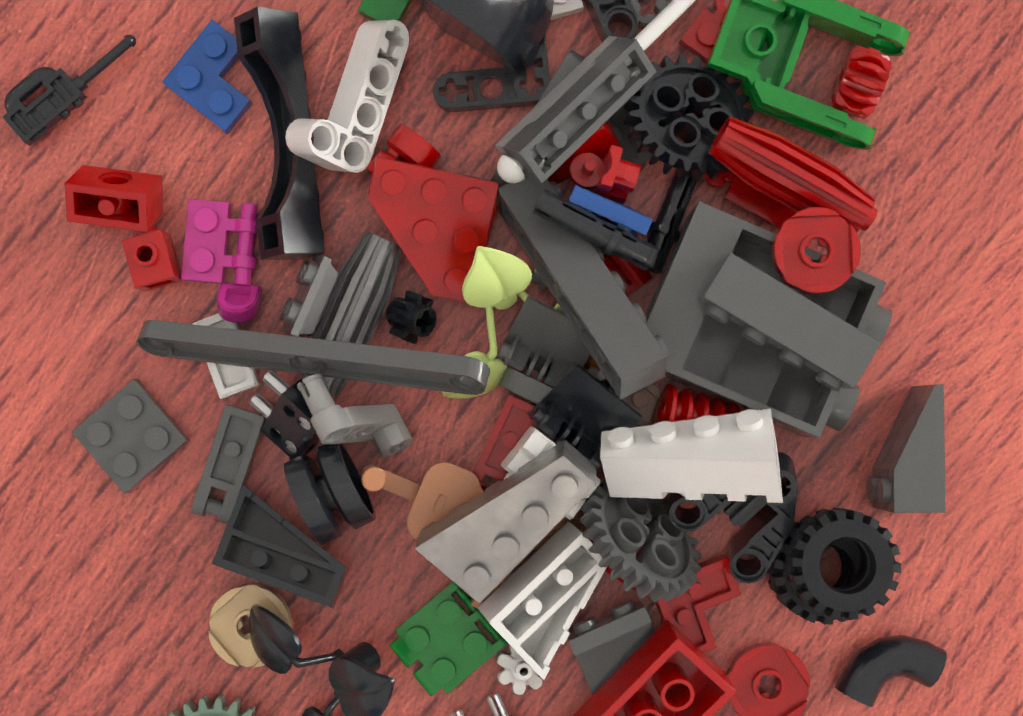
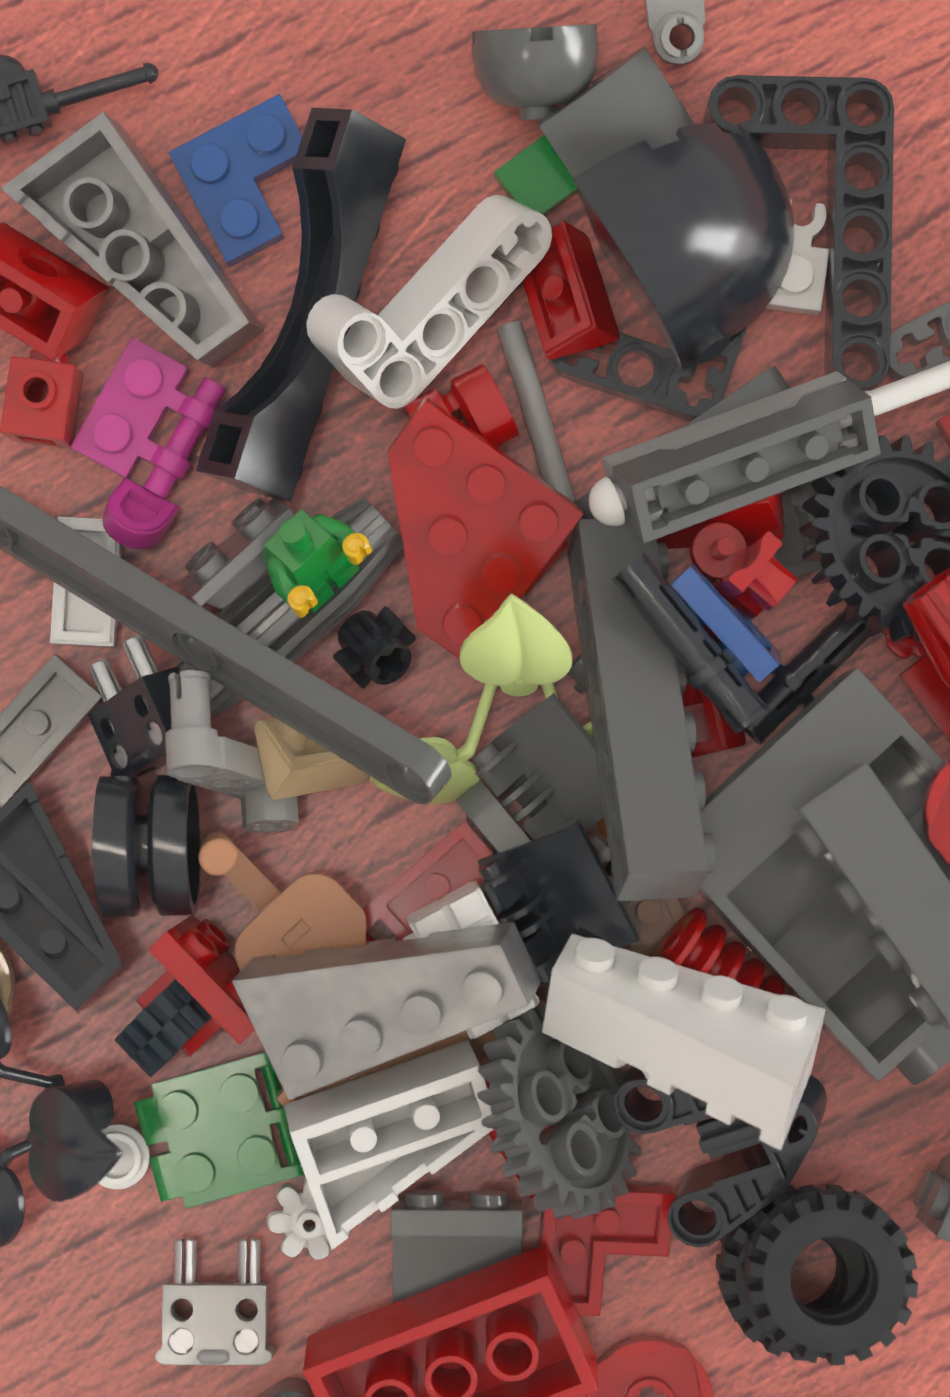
camera: 30 degrees right, 0 degrees up
(153, 134) = (124, 223): none -> flat silver wedge
(350, 279) = (311, 558): none -> green piece
(394, 570) = (188, 998): none -> red plate
(398, 404) = (299, 765): none -> tan slope
(403, 679) = (134, 1160): none -> white plate
(434, 62) = (570, 296): none -> red slope
(441, 135) = (534, 408): none -> light grey bar

